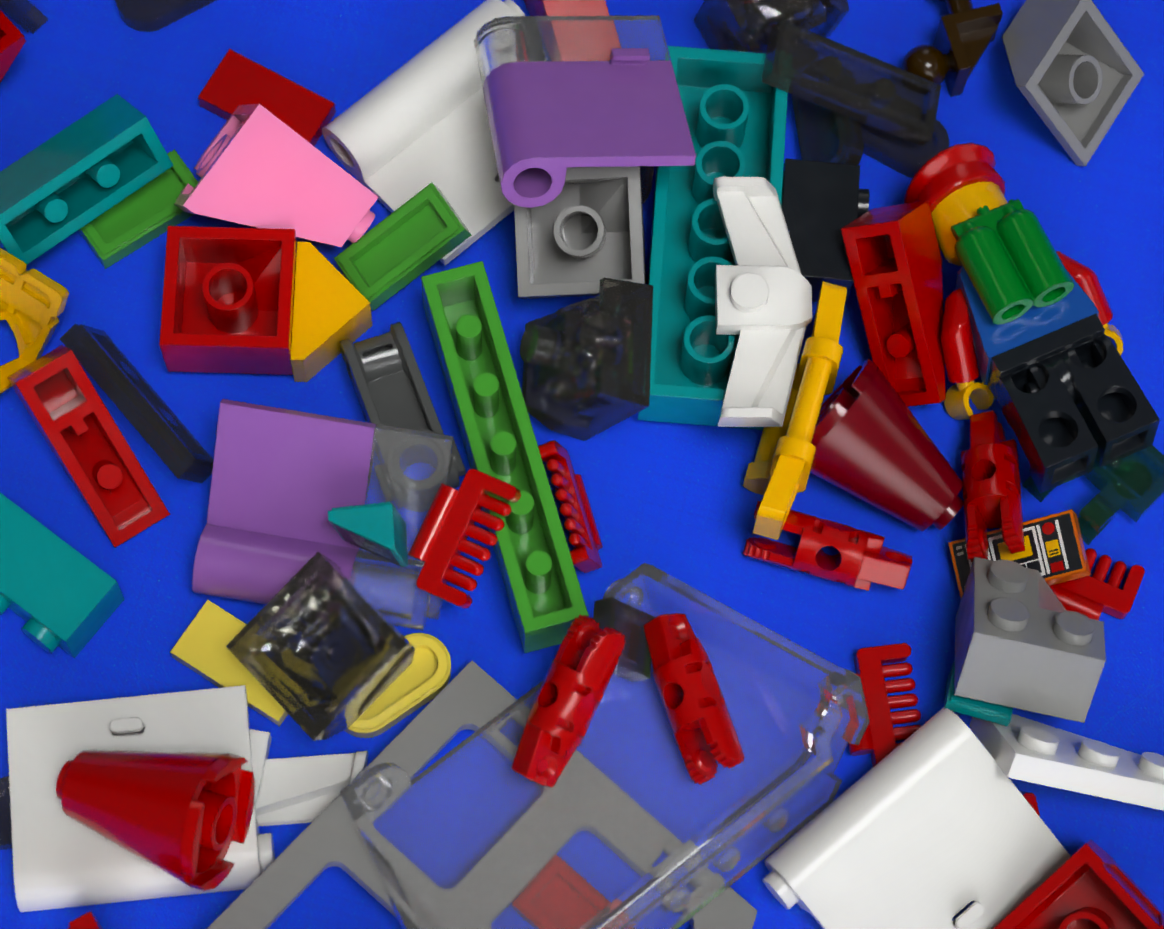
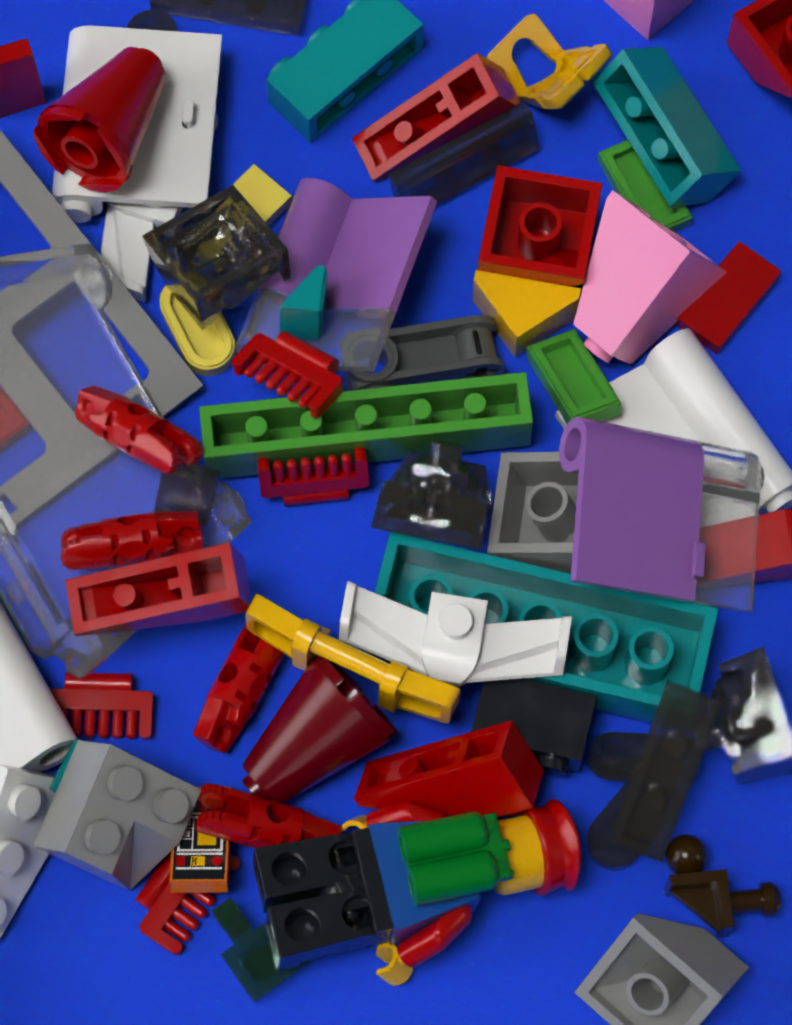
camera: 105 degrees right, 0 degrees up
(773, 621) = (161, 592): none -> red slope

